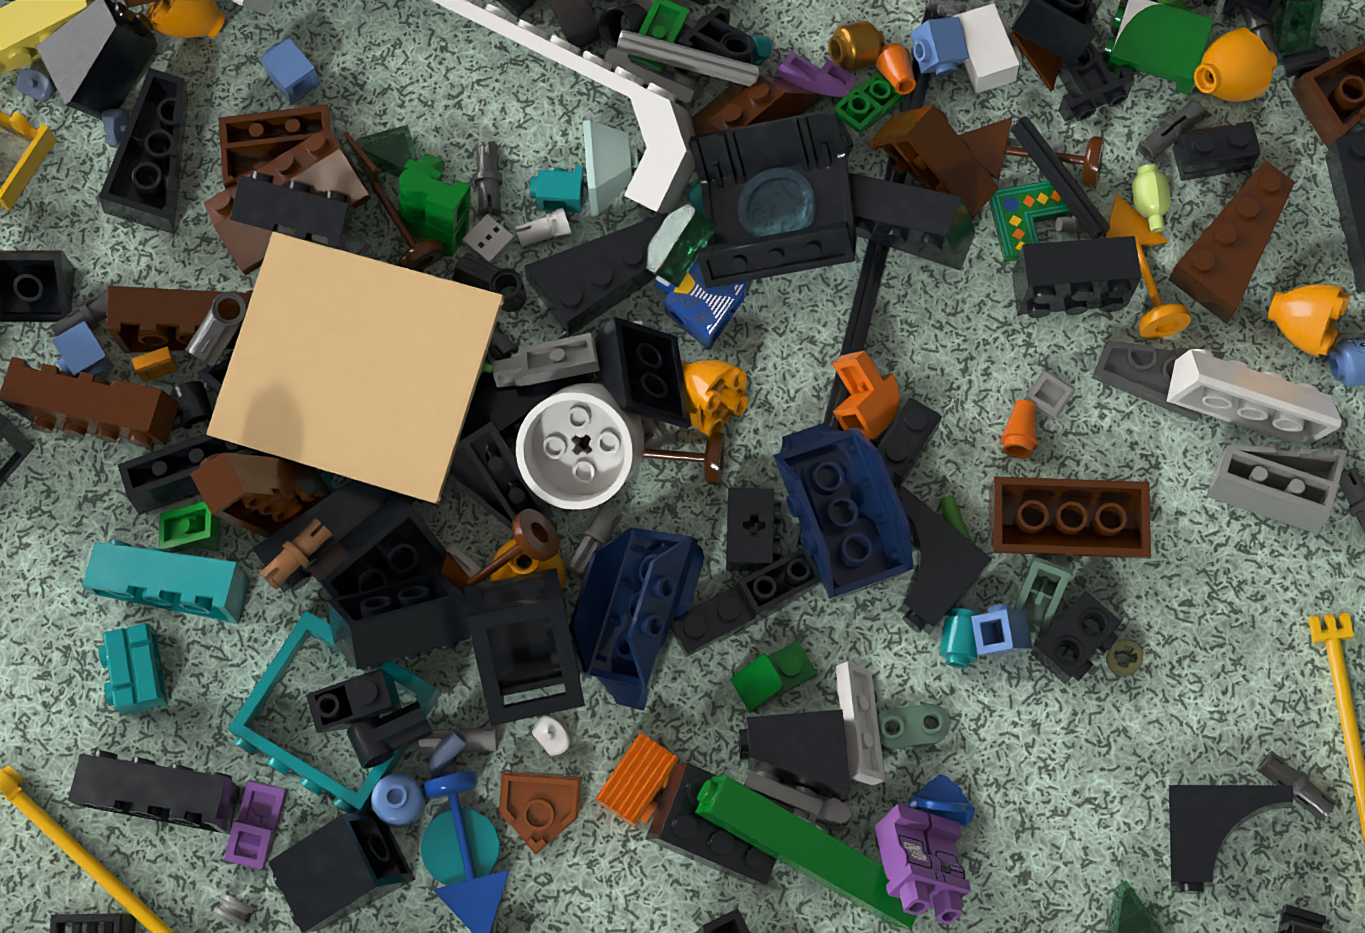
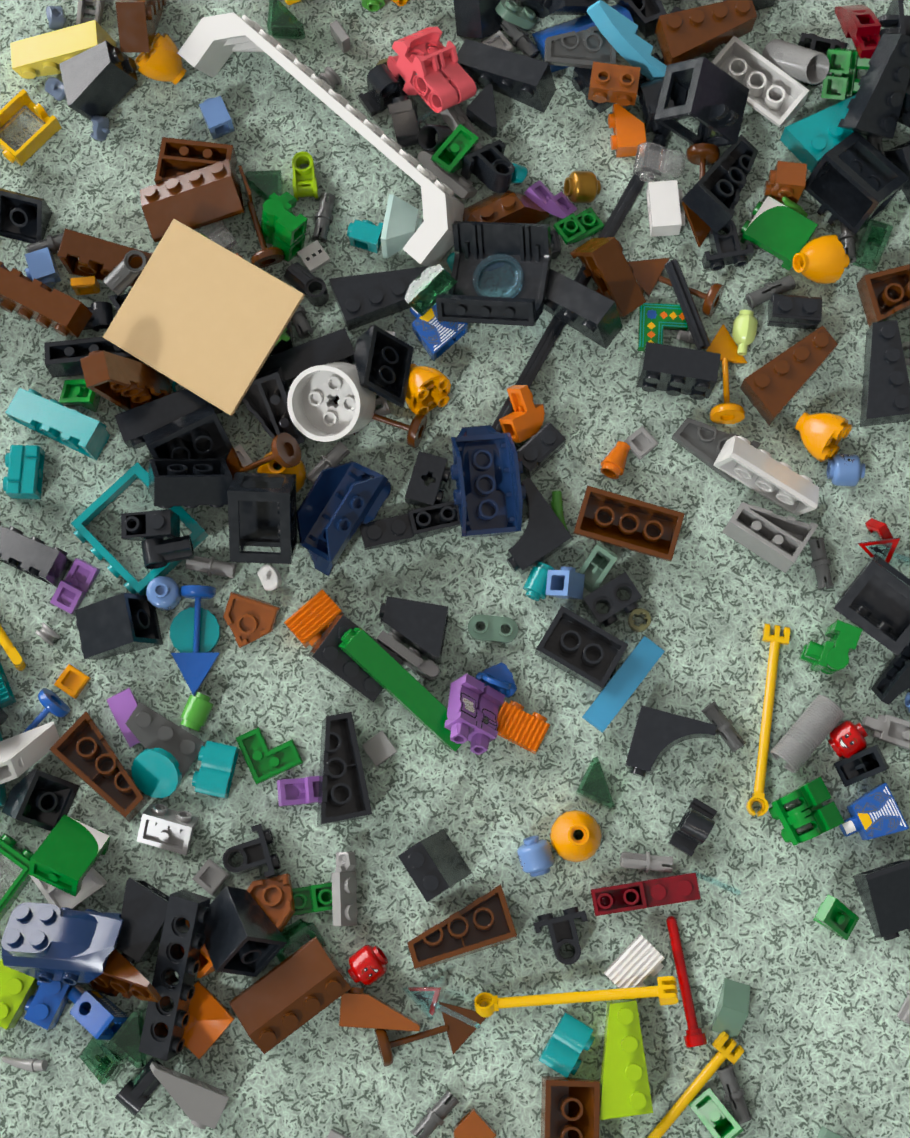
camera: 15 degrees right, 5 degrees up
(149, 156) = (114, 152): black wedge -> none
(292, 210) = (191, 208): black wedge -> none
(295, 553) = (139, 425): medium nougat pin -> none
(441, 759) = (199, 571): sand blue arm -> none
(445, 131) = (304, 180): none -> lime piece
(548, 361) = (326, 343): light grey hinge -> none
(551, 226) = (356, 257): white pin -> none
(687, 58) = (468, 169): light grey axle -> none
(773, 676) = (416, 575): green slope -> none
(860, 723) = (460, 618): white plate -> none
(897, 67) = (603, 207): orange cone -> none
(940, 45) = (634, 200): medium blue brick -> none
(999, 865) = (521, 727): none -> orange brick
(1054, 723) = (581, 649): none -> black brick
(1130, 761) = (623, 684): none -> dark azure slope
(1305, 61) = (867, 267): black pin -> none

